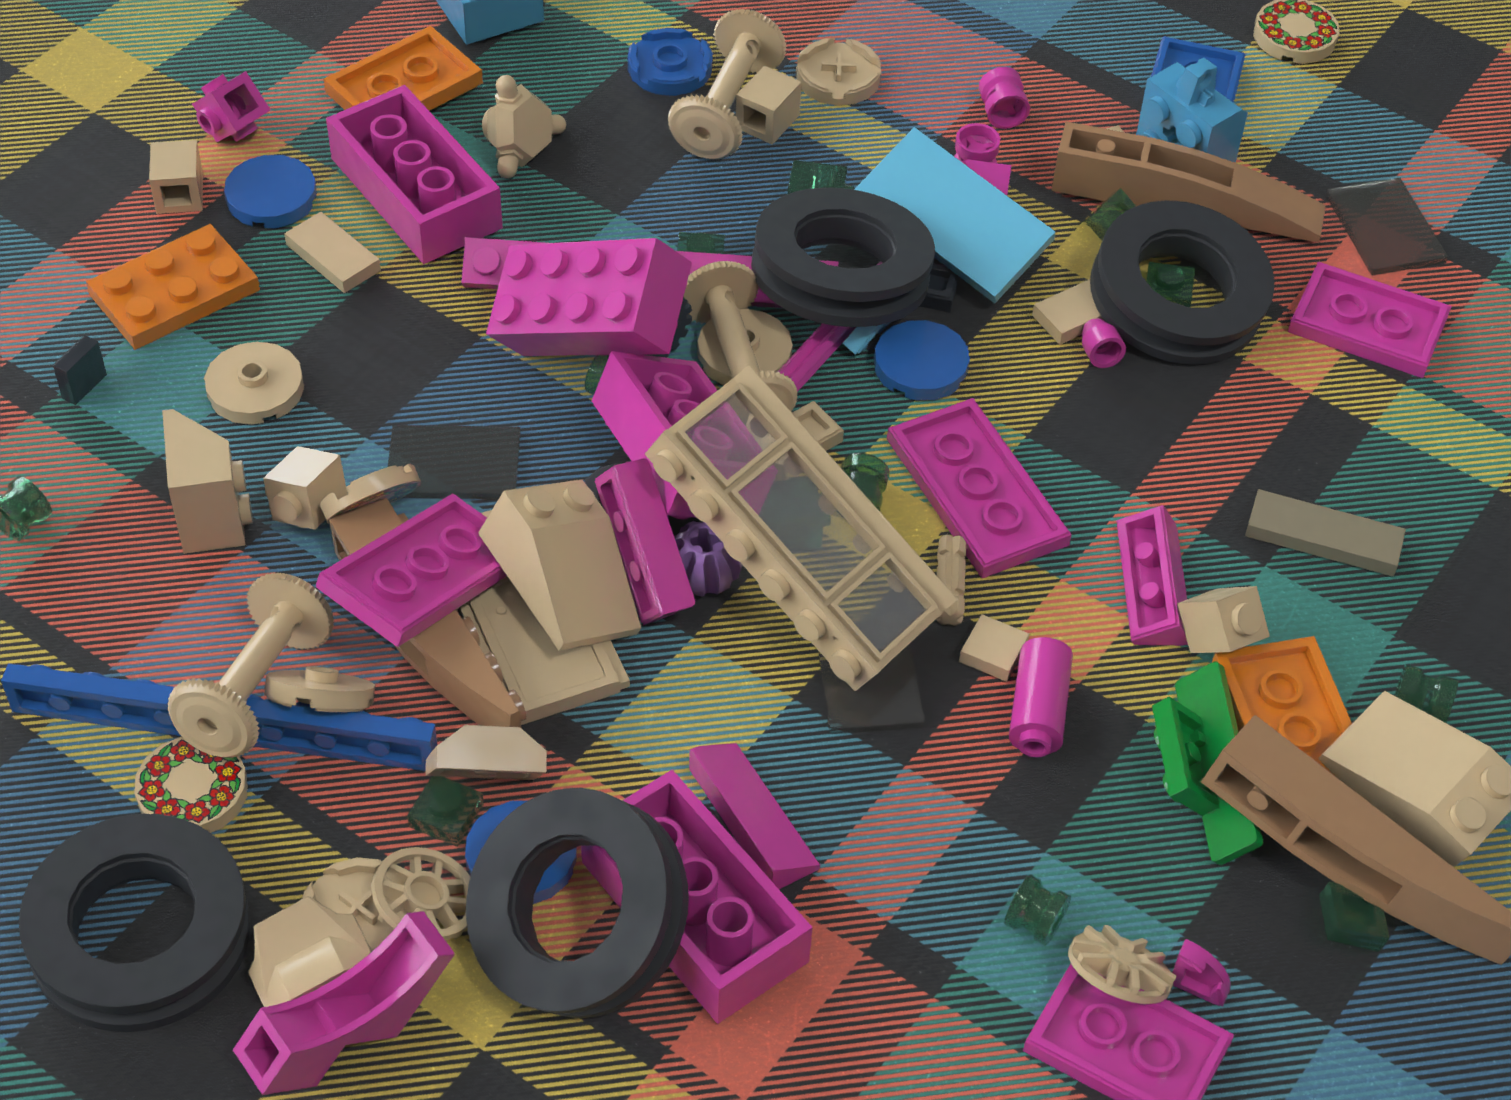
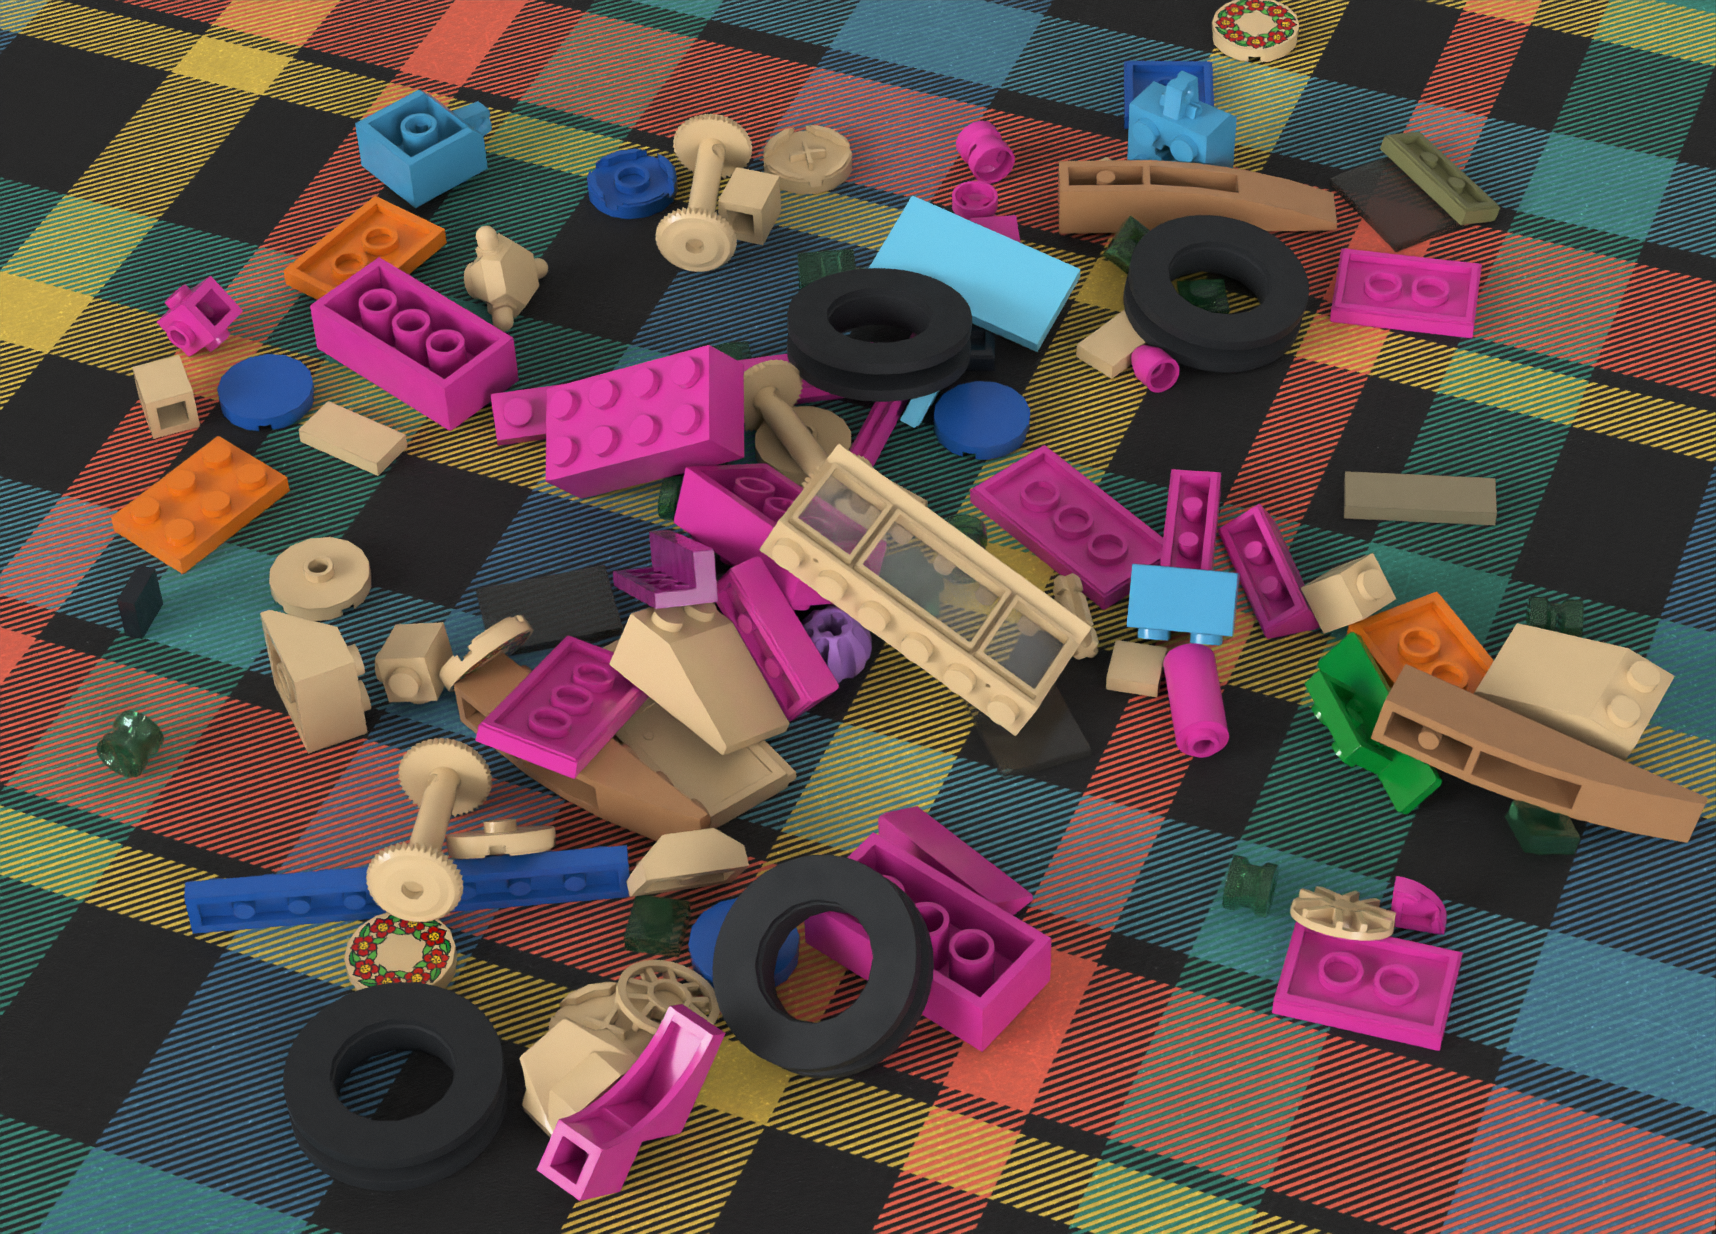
camera: 10 degrees left, 5 degrees down
(563, 464) = (679, 574): none -> magenta fence
(1054, 593) = (1182, 601): none -> dark azure brick
(1087, 520) = (1191, 519): none -> dark pink slope
(1434, 211) = (1440, 178): none -> olive tile

